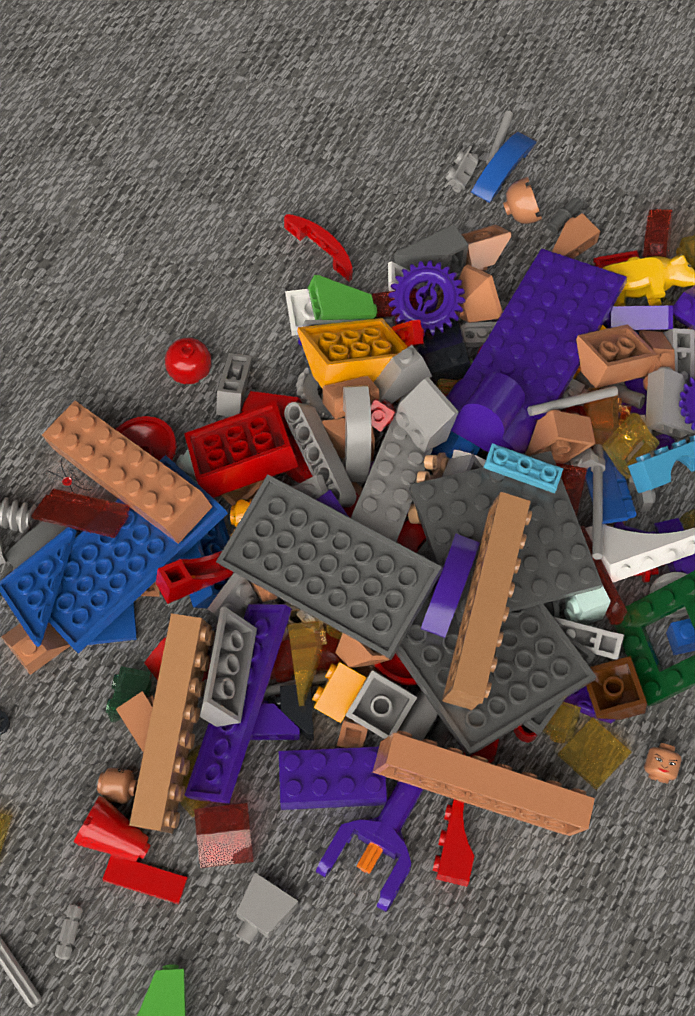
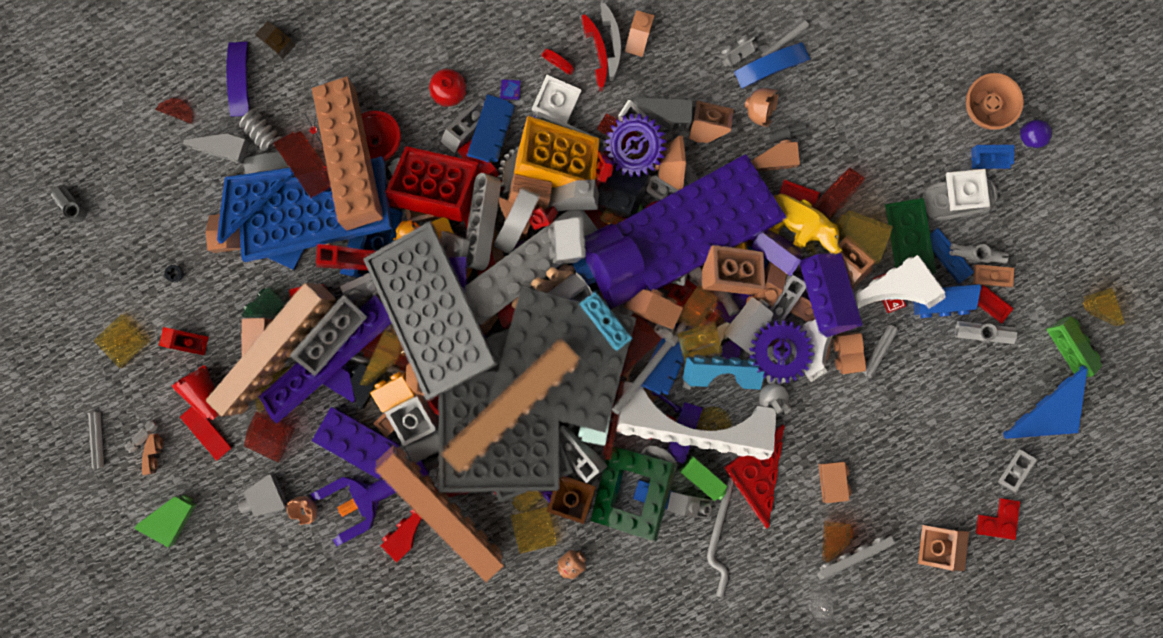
camera: 30 degrees right, 20 degrees up
(54, 788) = (183, 341): none -> red slope
(91, 932) = (153, 446): none -> nougat slope
(117, 785) = (221, 362): nougat head -> none
(256, 328) = (510, 89): none -> dark purple tile
(264, 370) = (491, 129): none -> blue windscreen
(287, 273) = (558, 61): none -> red tile
(314, 209) = (609, 20): none -> light grey slope
(322, 886) = (294, 510): none -> nougat hair
(338, 301) = (575, 110): bright green slope -> none
(353, 204) = (639, 33): none -> nougat slope
(450, 585) = (500, 374): dark purple slope -> none
(572, 401) = (677, 290): light grey bar -> none

